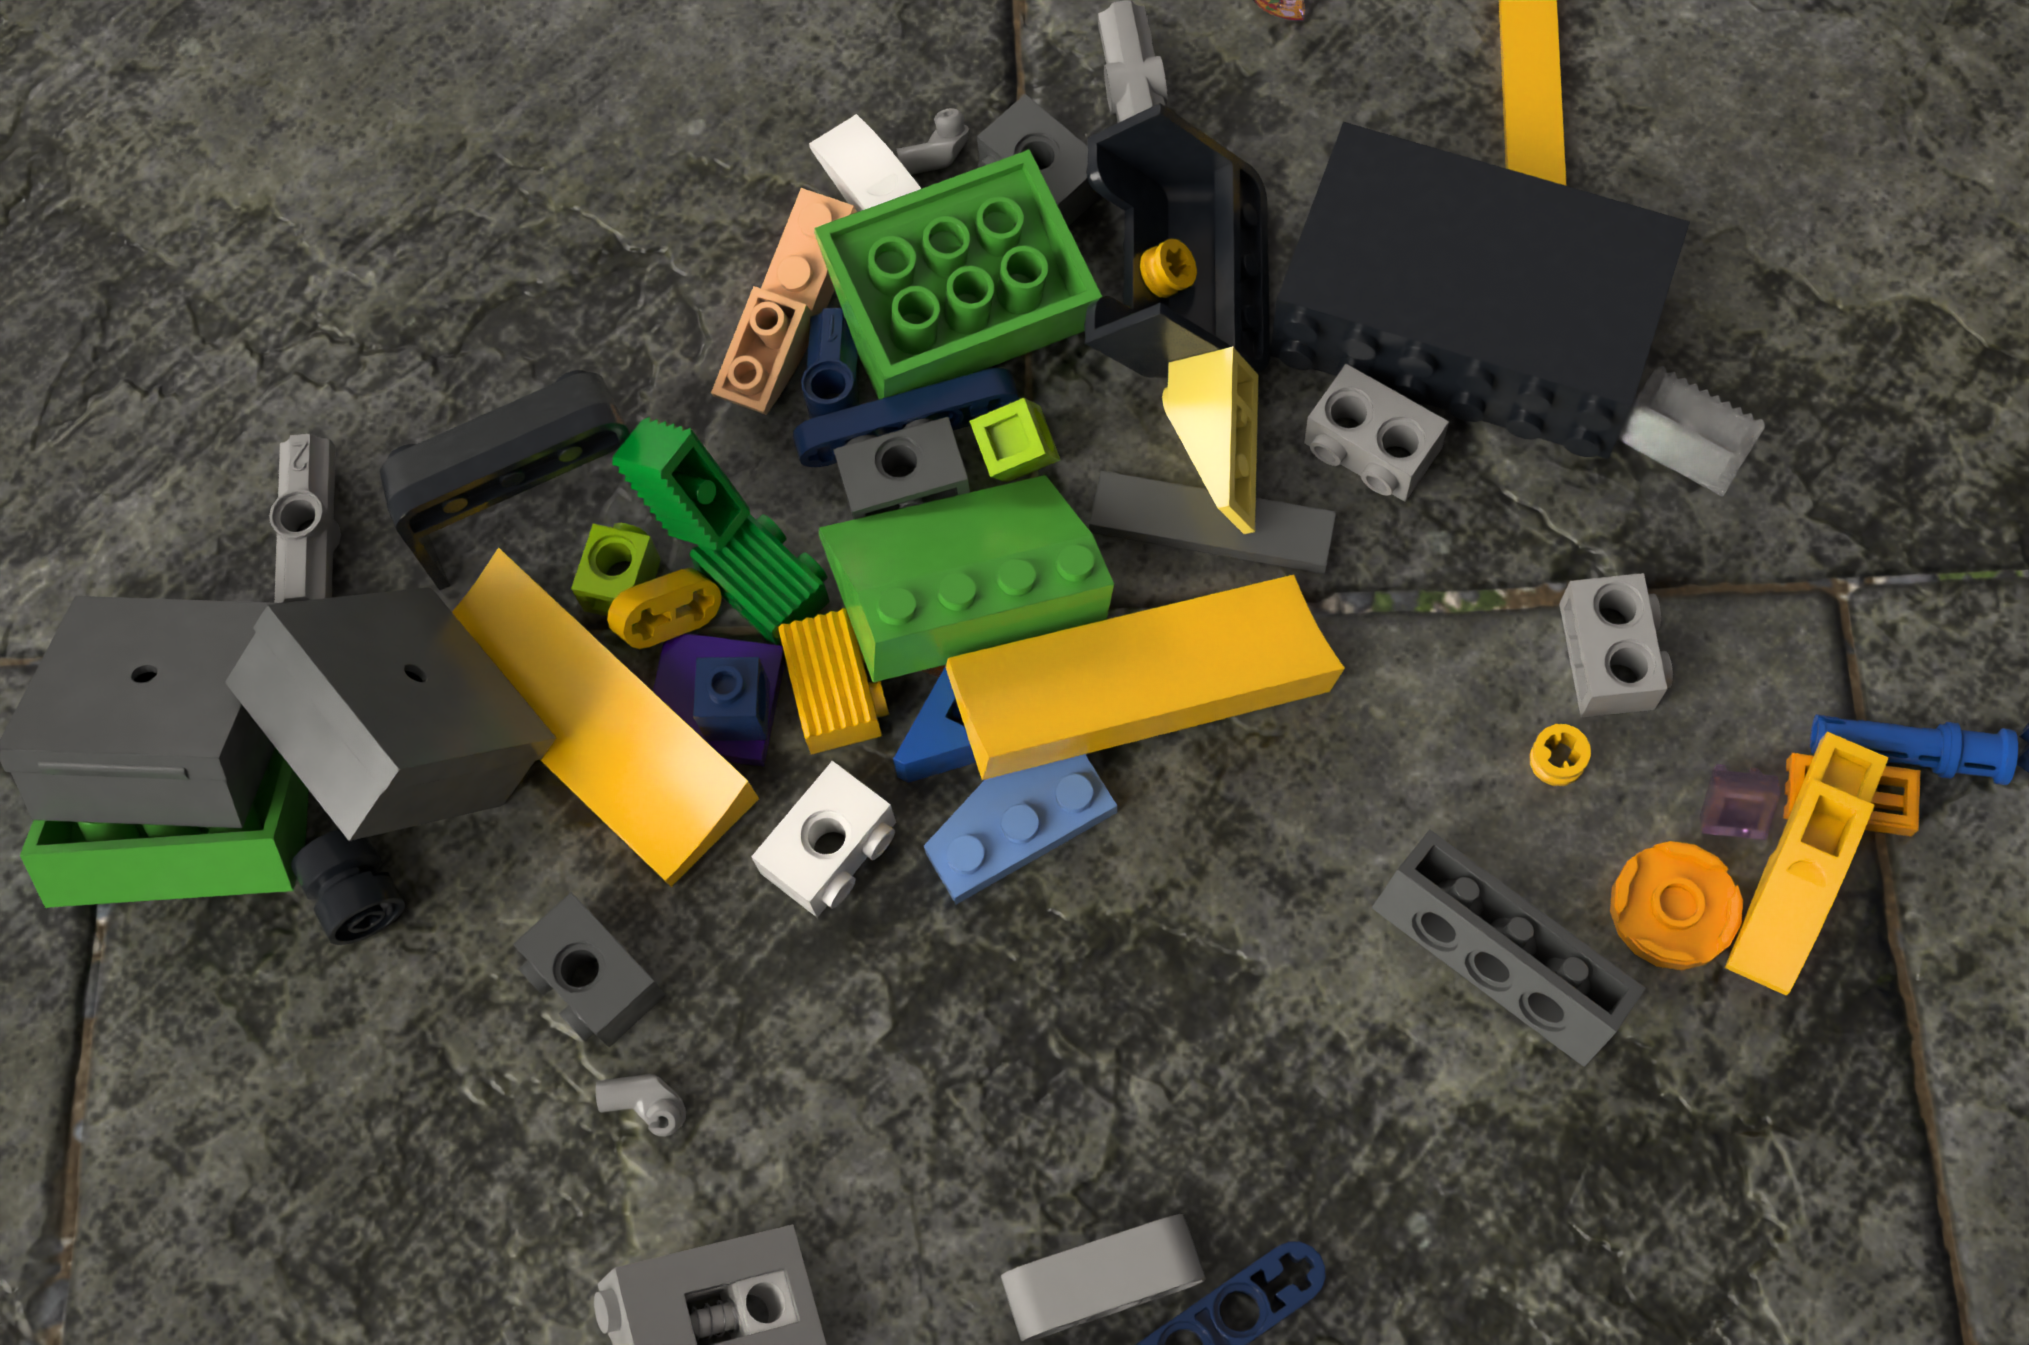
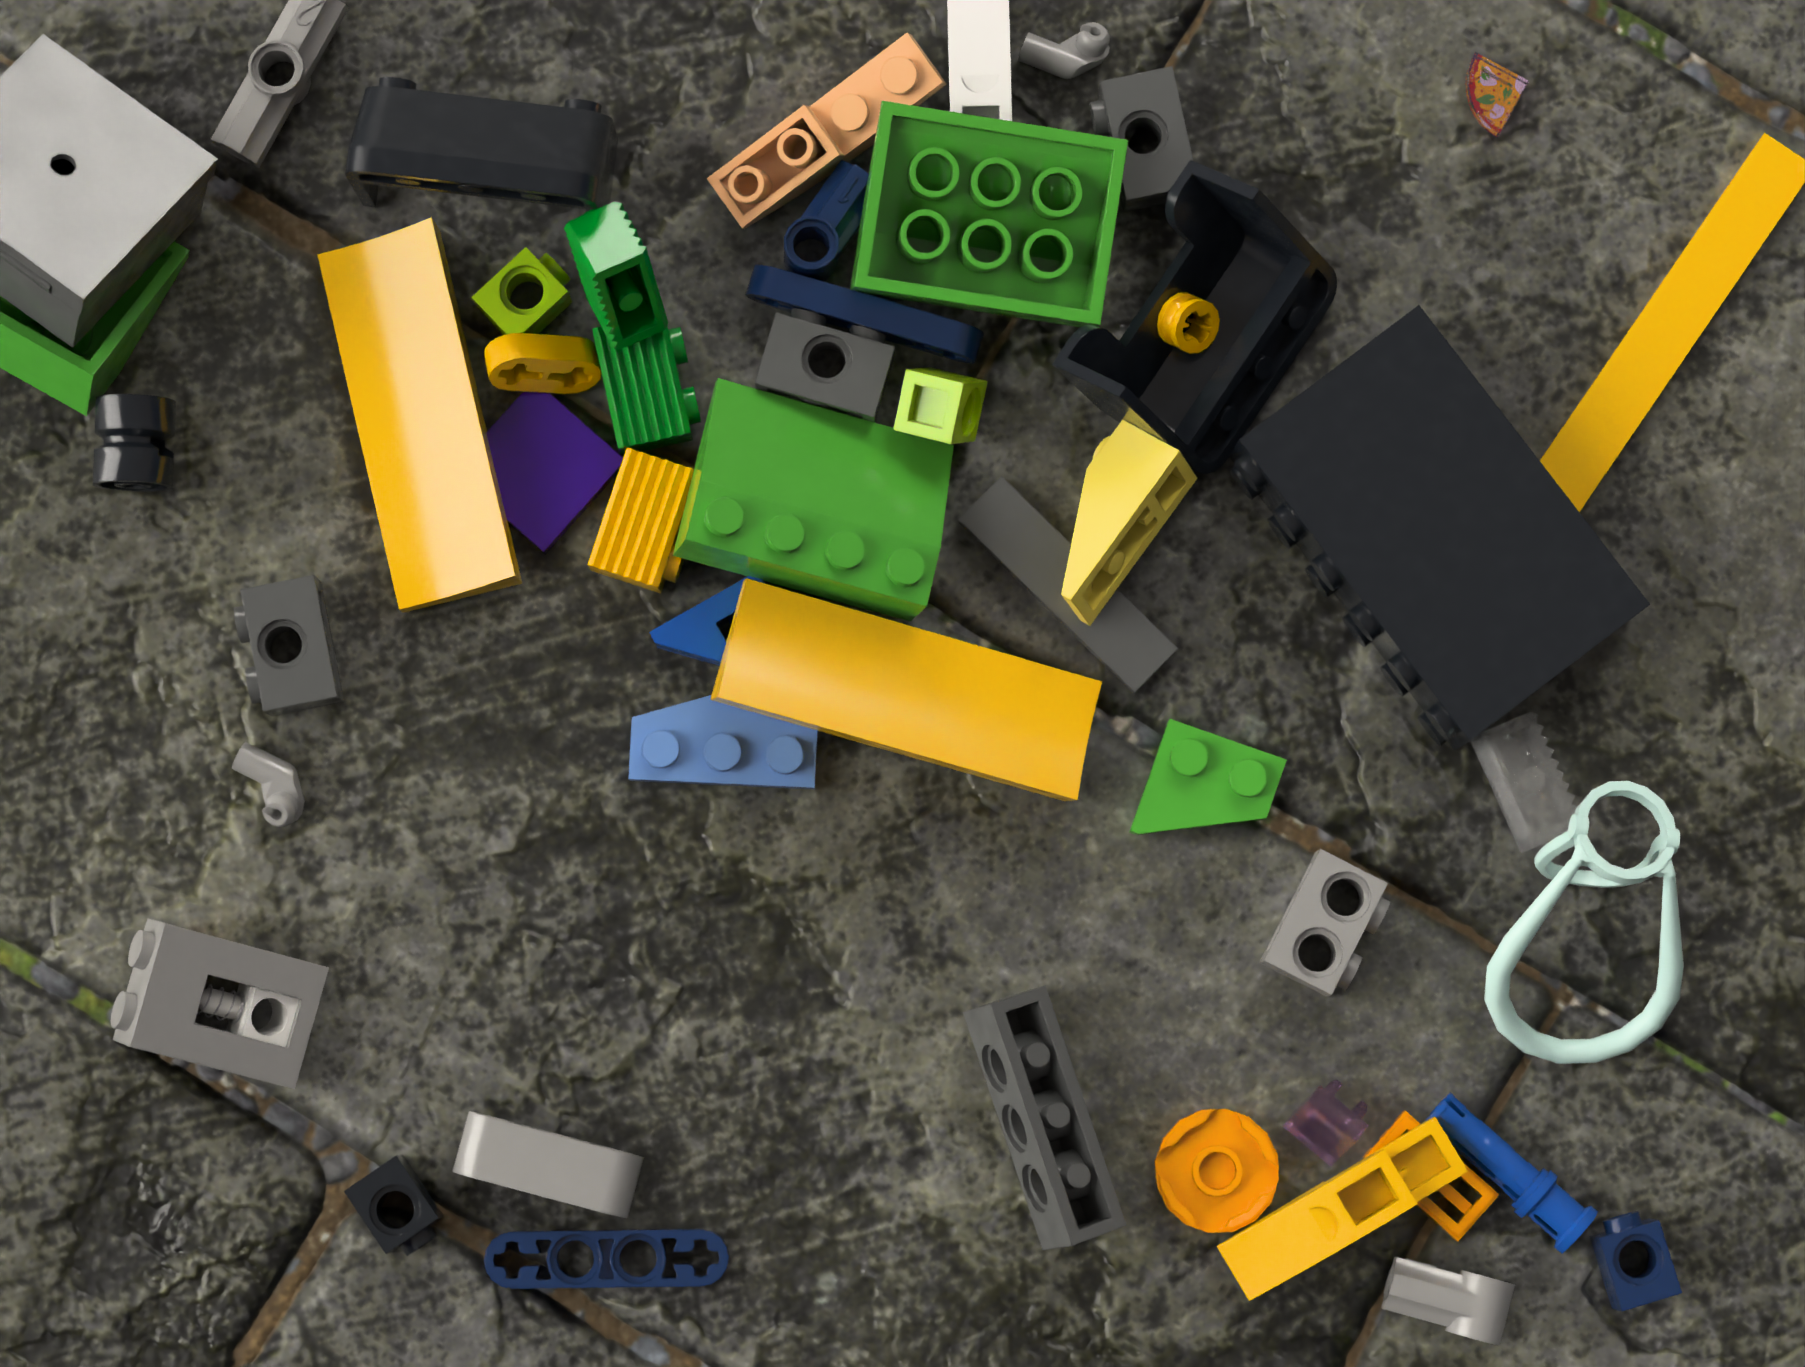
camera: 25 degrees right, 15 degrees up
(387, 709) = (251, 324): dark grey container -> none
(731, 698) = (547, 489): dark blue brick -> none
(831, 804) = (516, 655): white brick -> none
(1131, 71) = (1290, 107): light grey piece -> none
(1384, 422) = (1275, 595): light grey brick -> none
(1432, 601) = (1205, 782): none -> bright green wing
(1579, 754) = (1231, 992): yellow bush -> none
(1786, 537) = (1603, 875): none -> light aqua animal
(1963, 875) = (1462, 1302): none -> light grey piece

